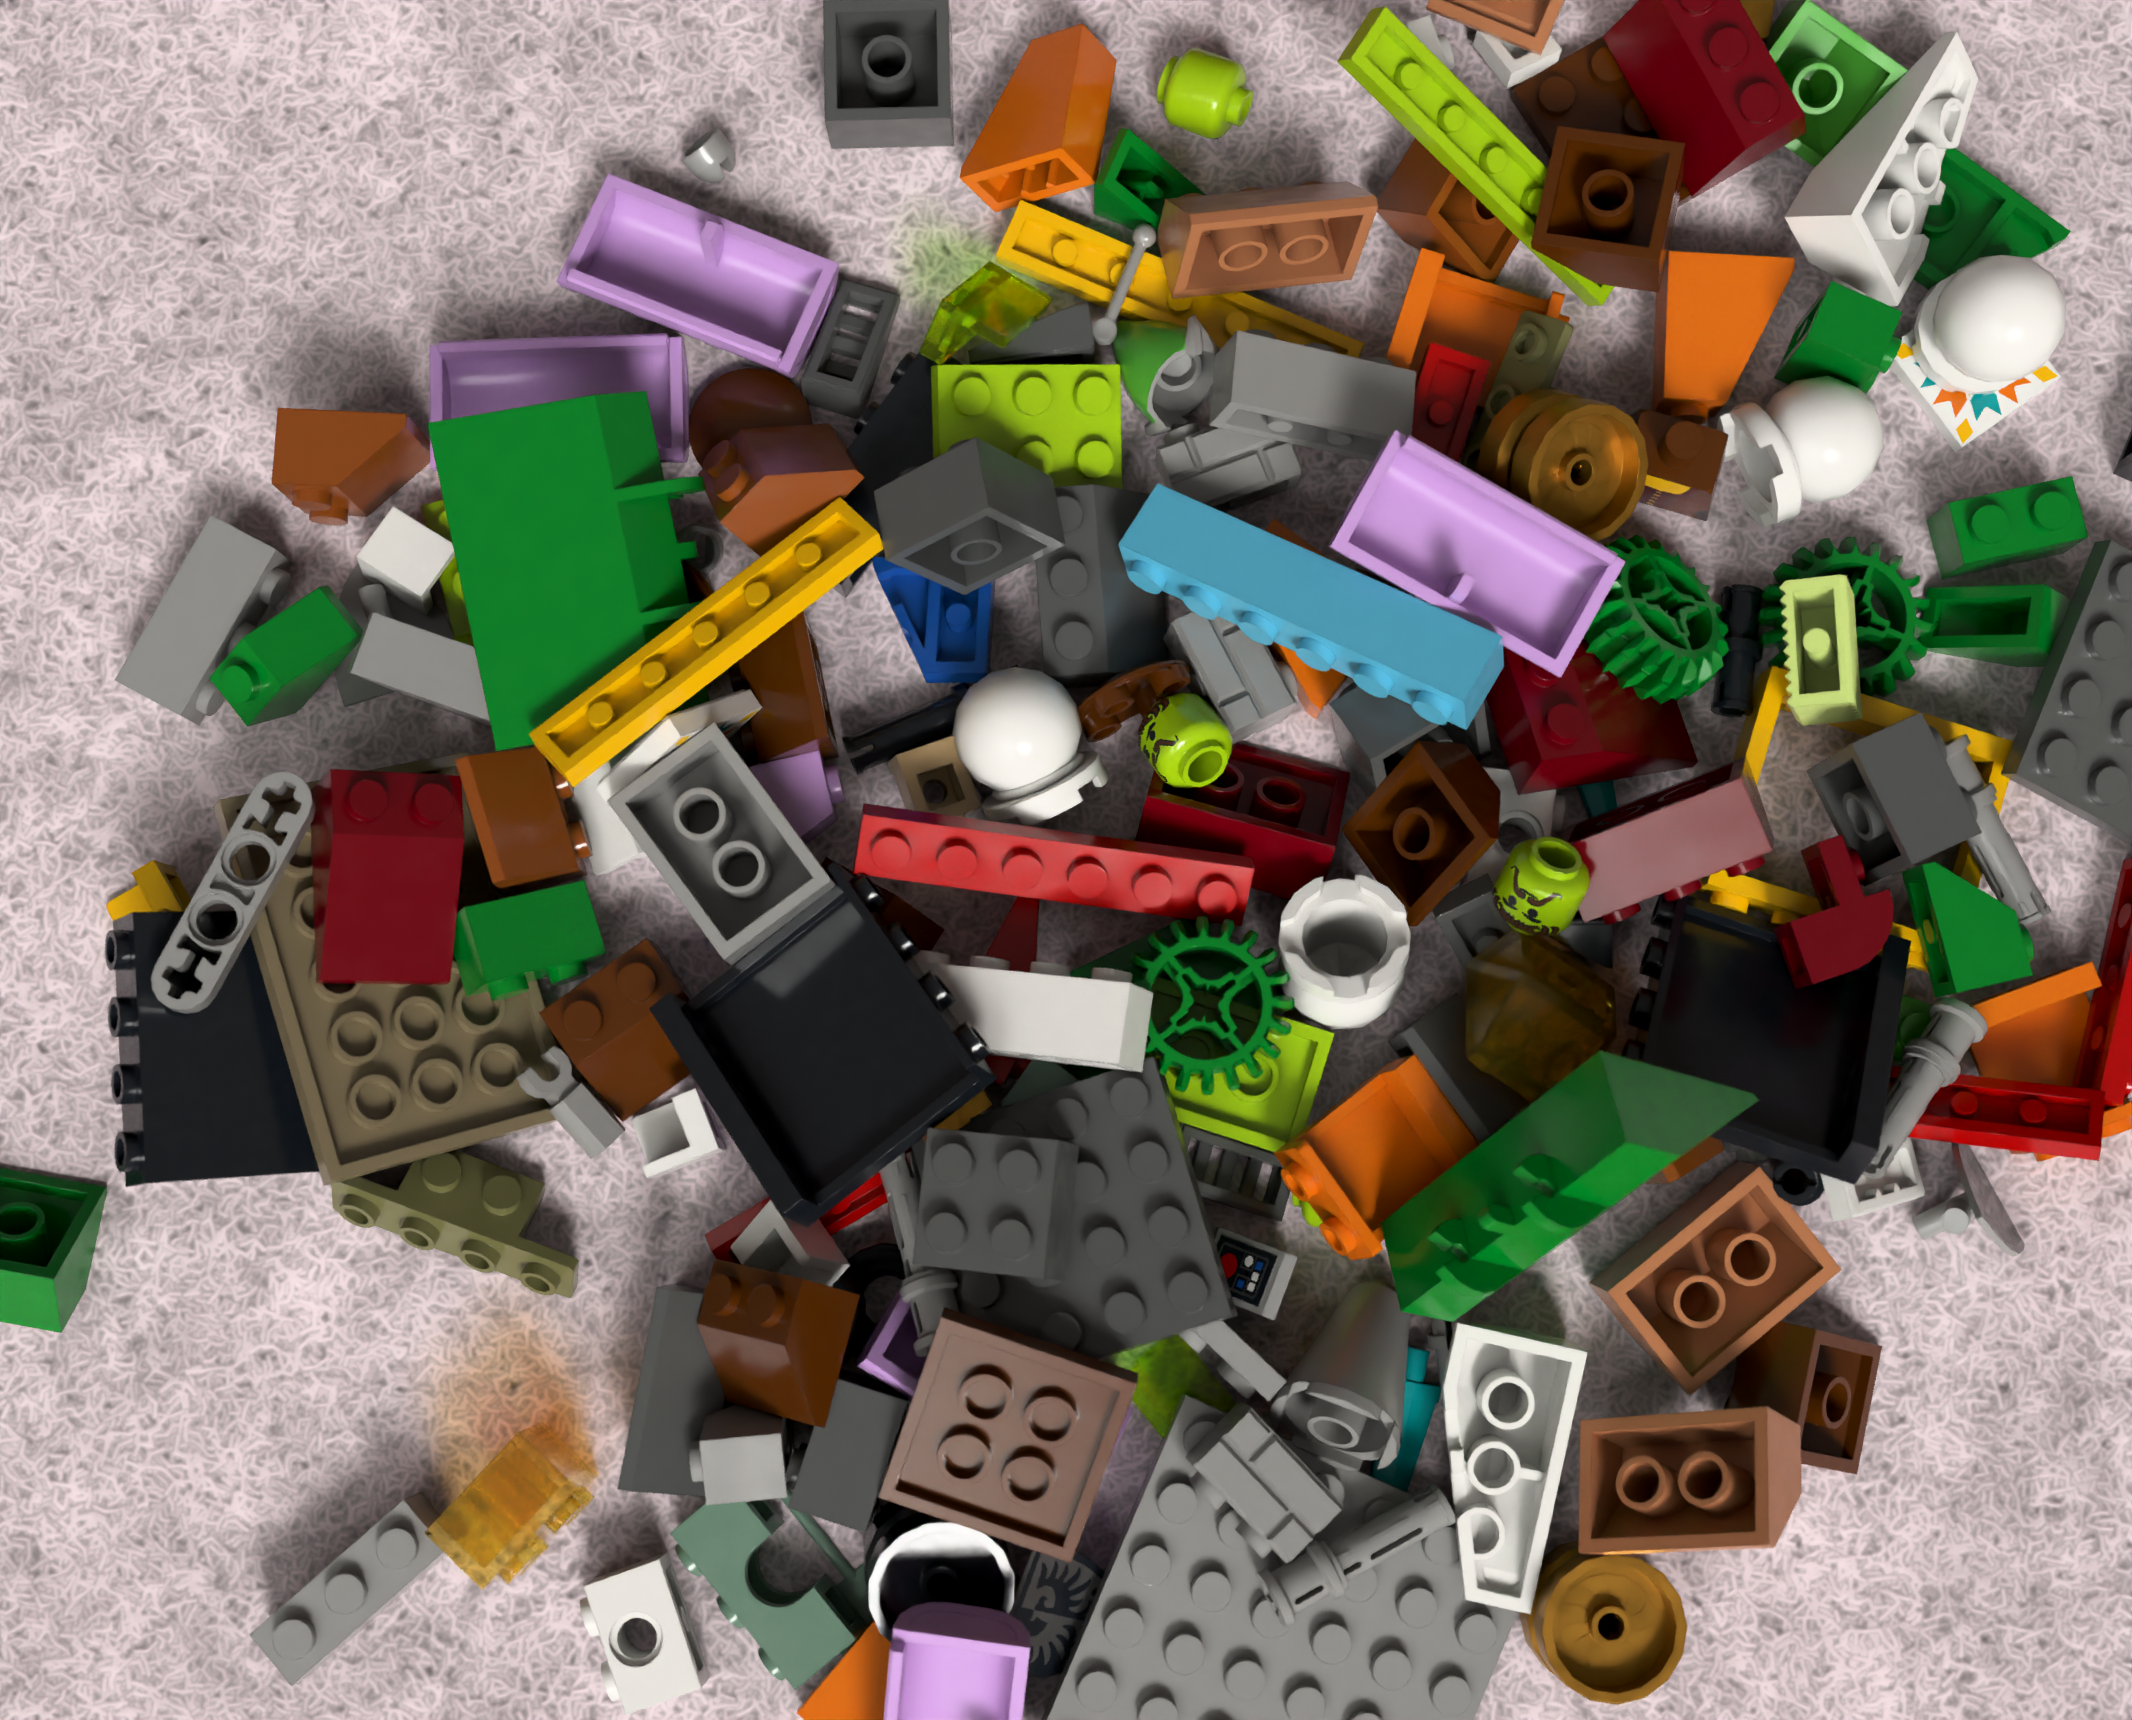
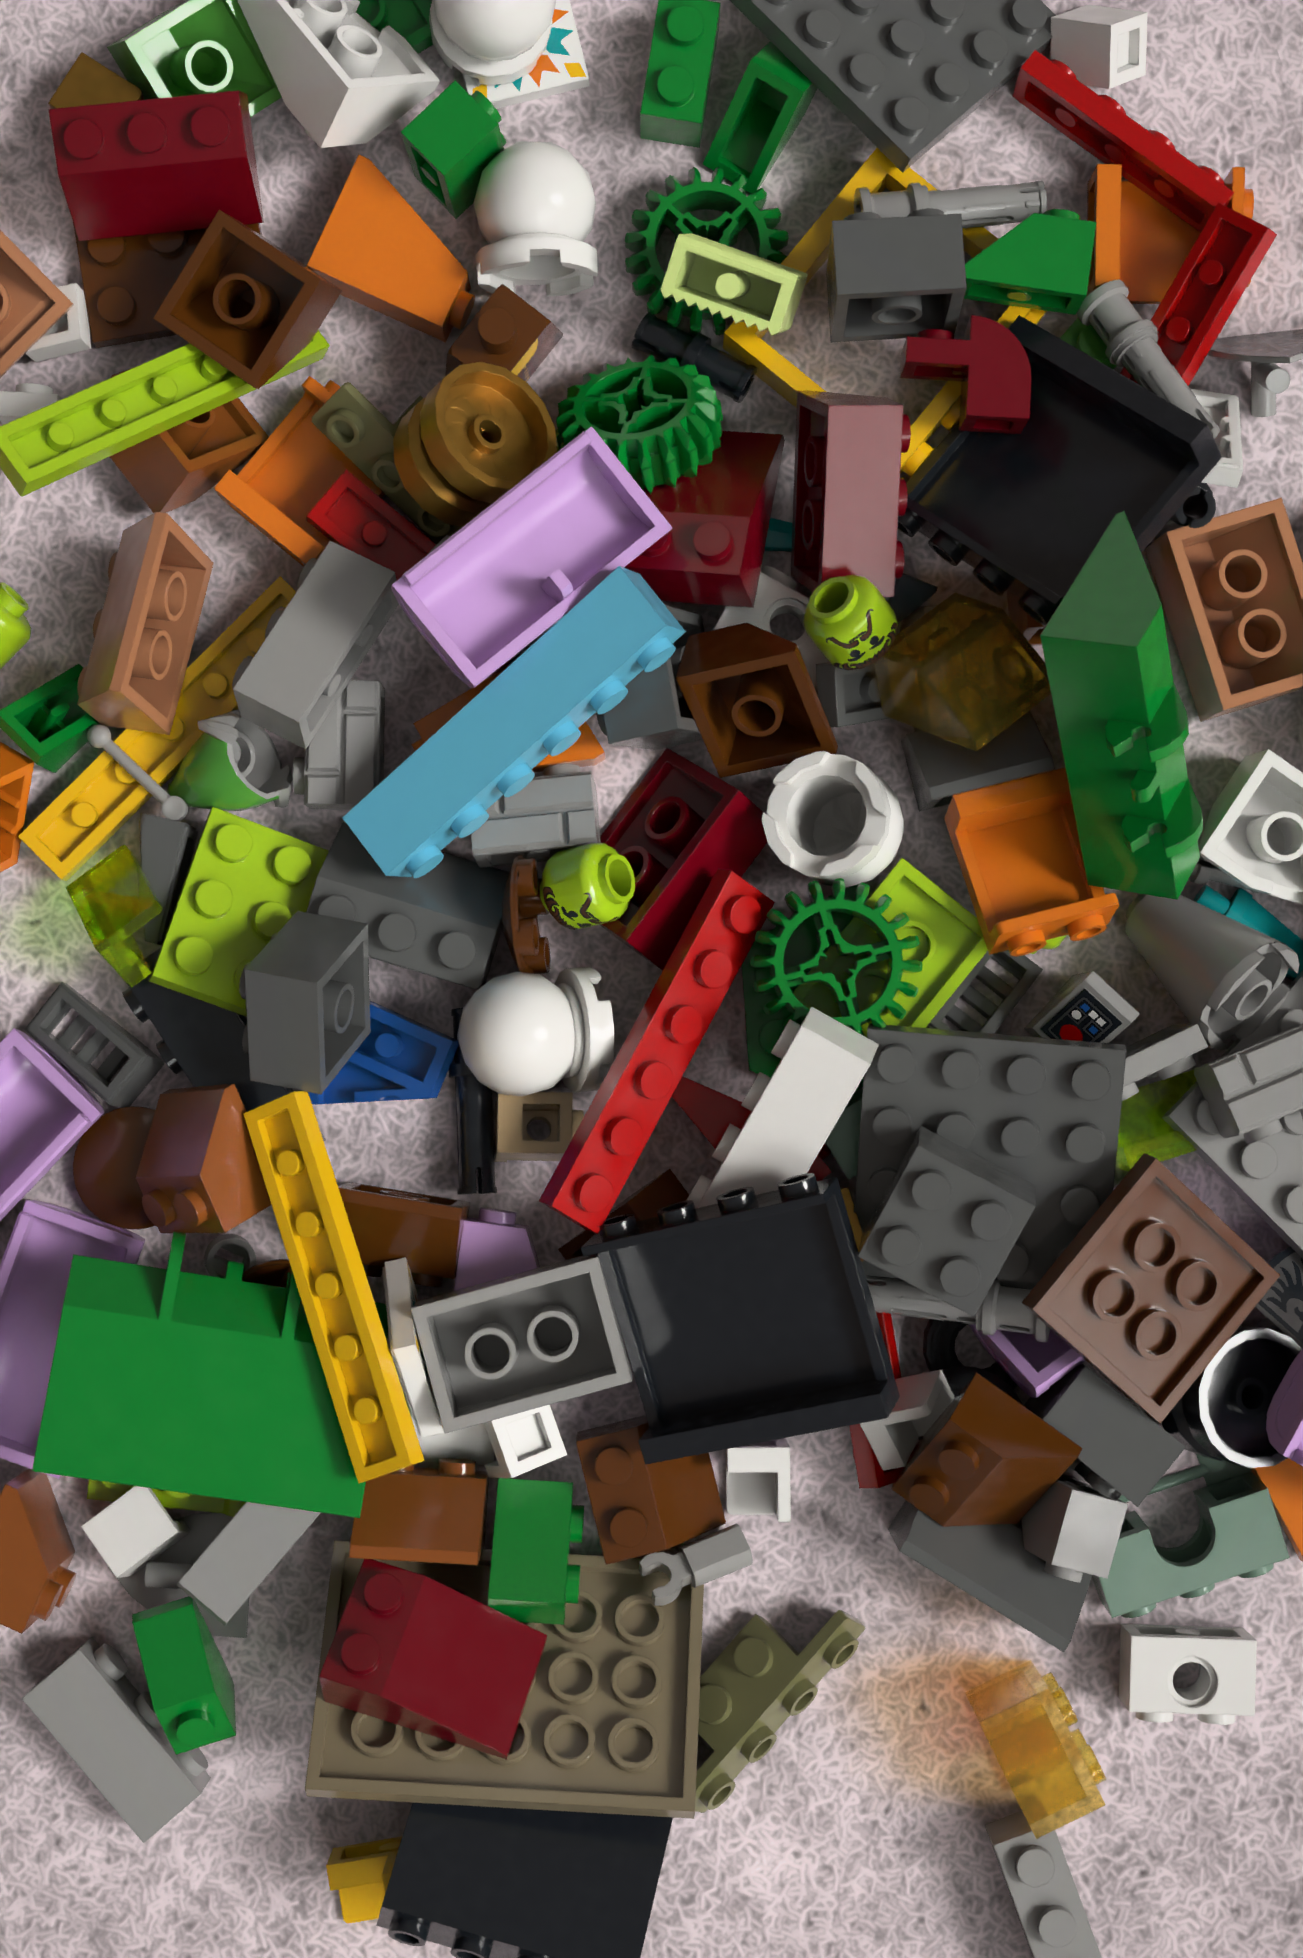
camera: 75 degrees left, 5 degrees up
(224, 887) = (389, 1813): light grey beam -> none
(630, 888) = (523, 1442): none -> white panel

